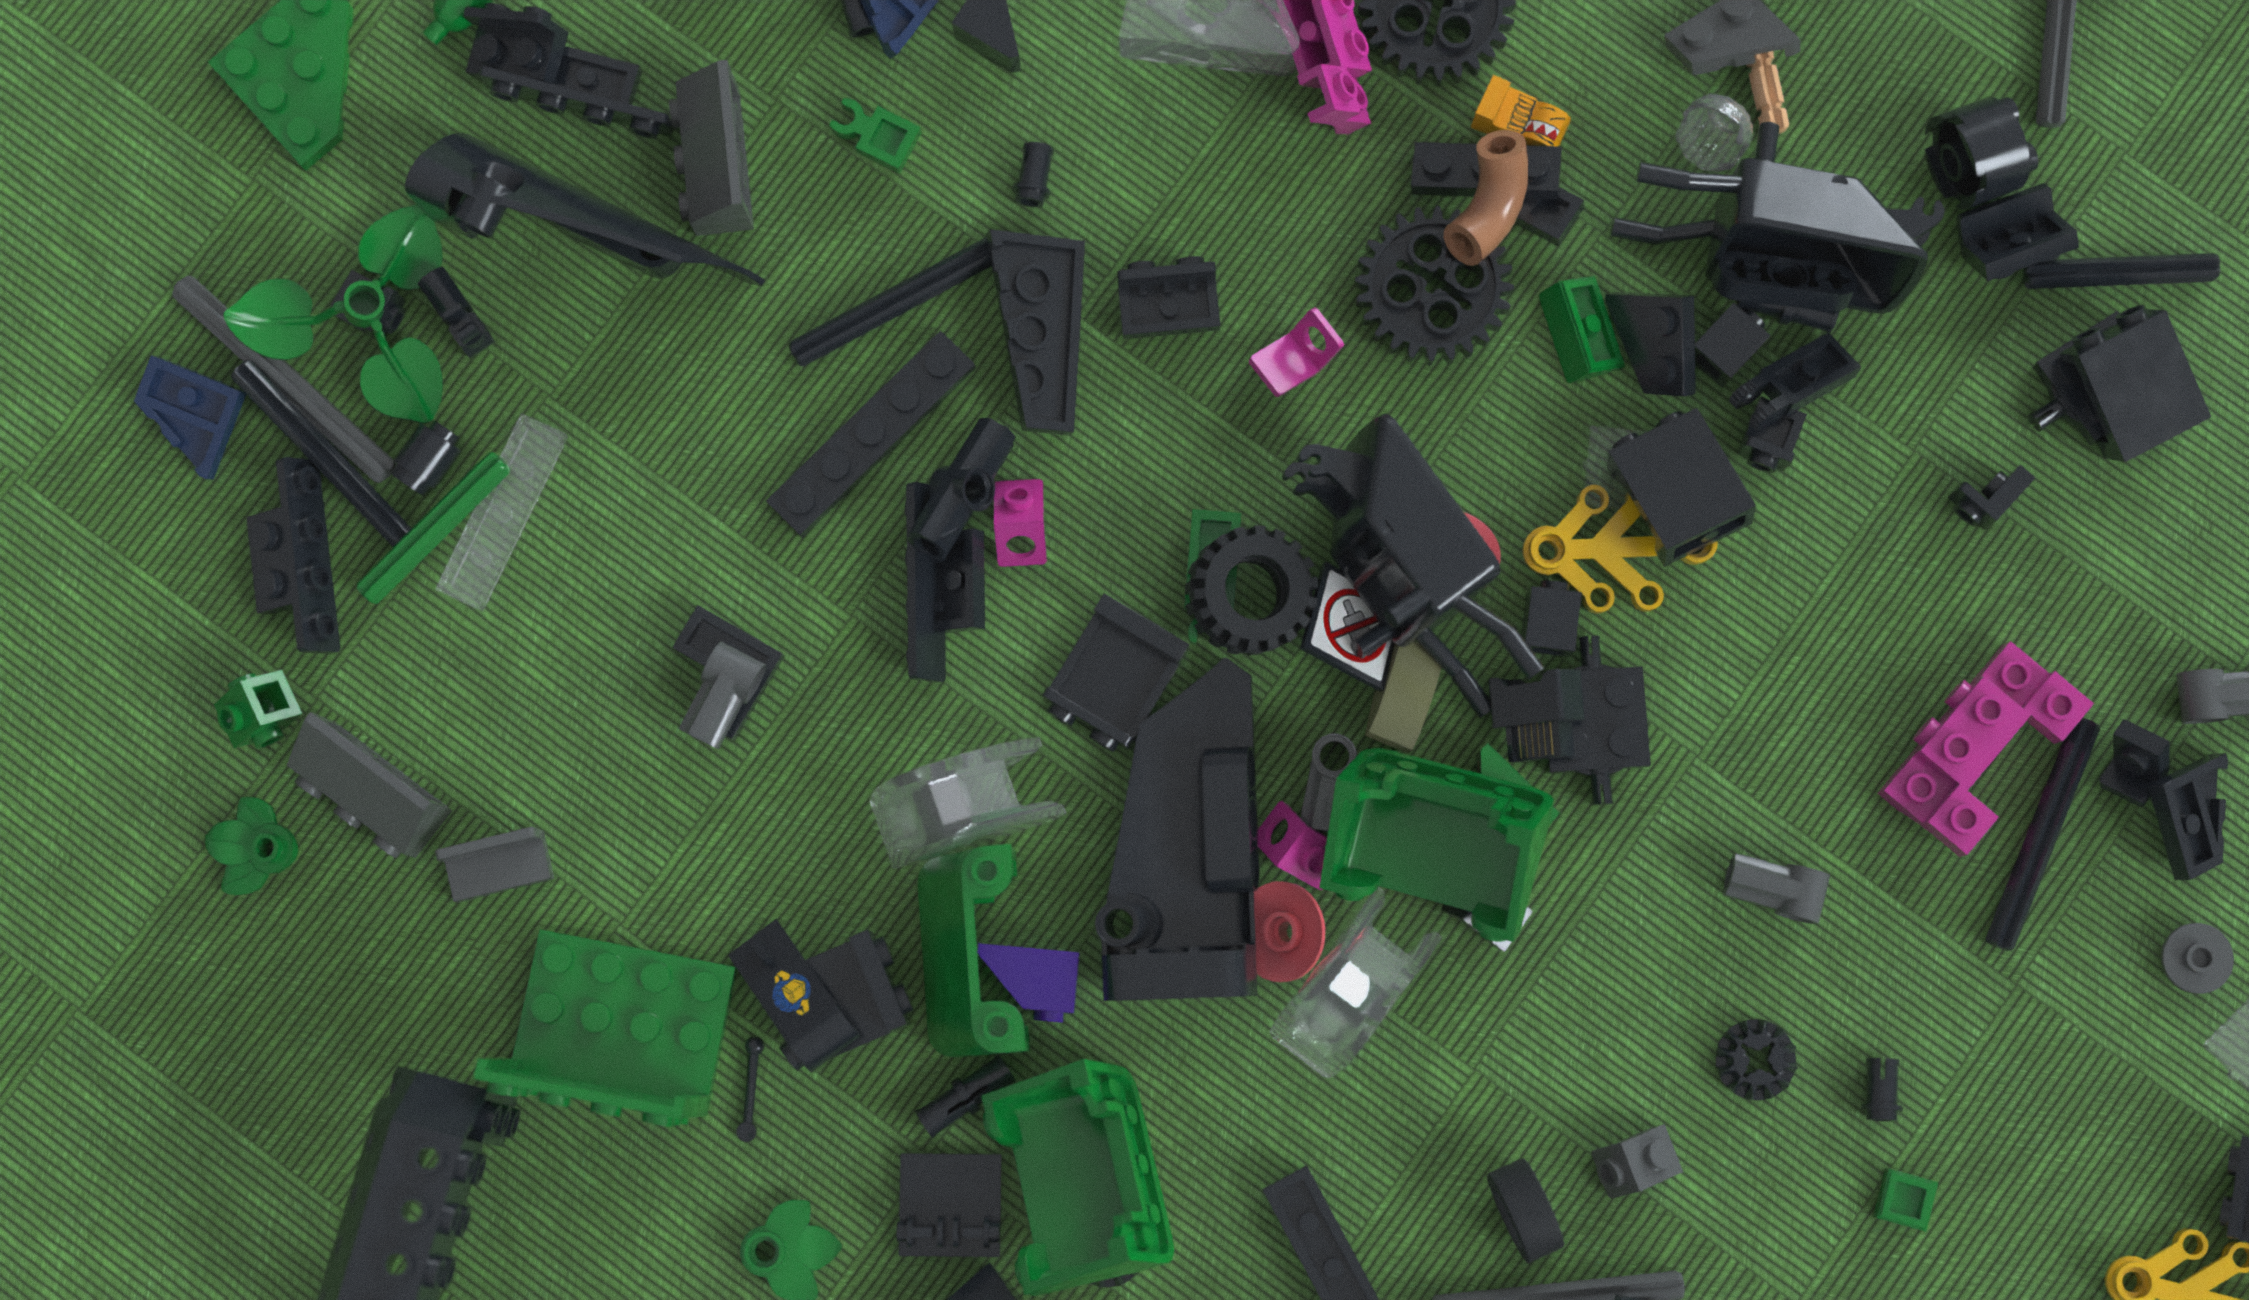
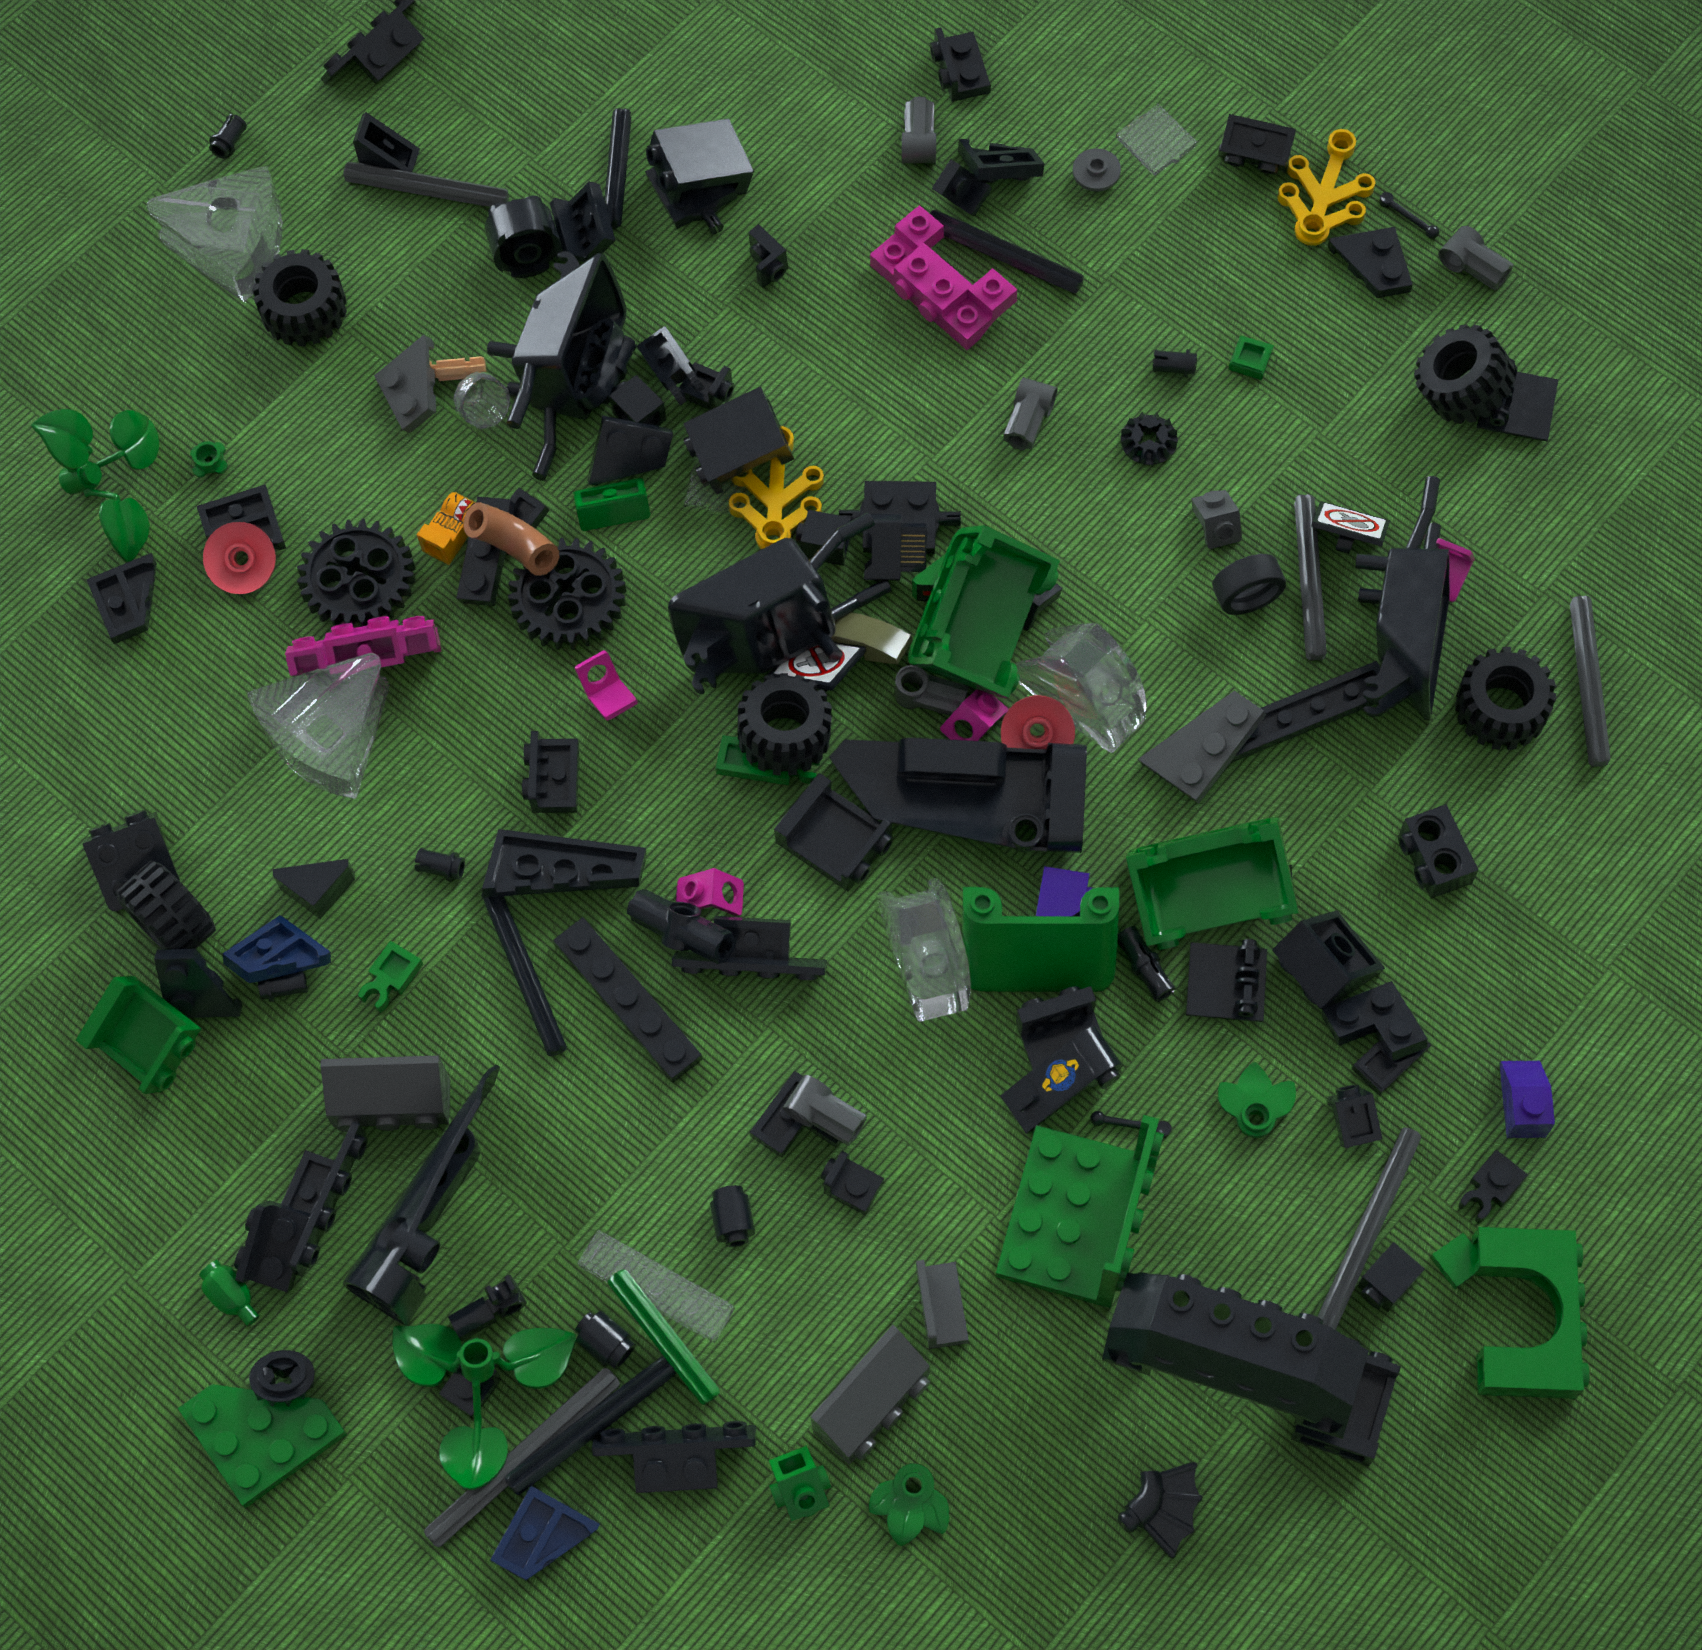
camera: 85 degrees left, 15 degrees down
(264, 1156) = (1164, 1506): none -> black arm
(379, 83) = (282, 1364): none -> black gear
(589, 595) = (732, 1216): none -> black brick
(645, 739) = (851, 1183): none -> black bracket
(1277, 1160) = (1205, 746): none -> dark grey wing

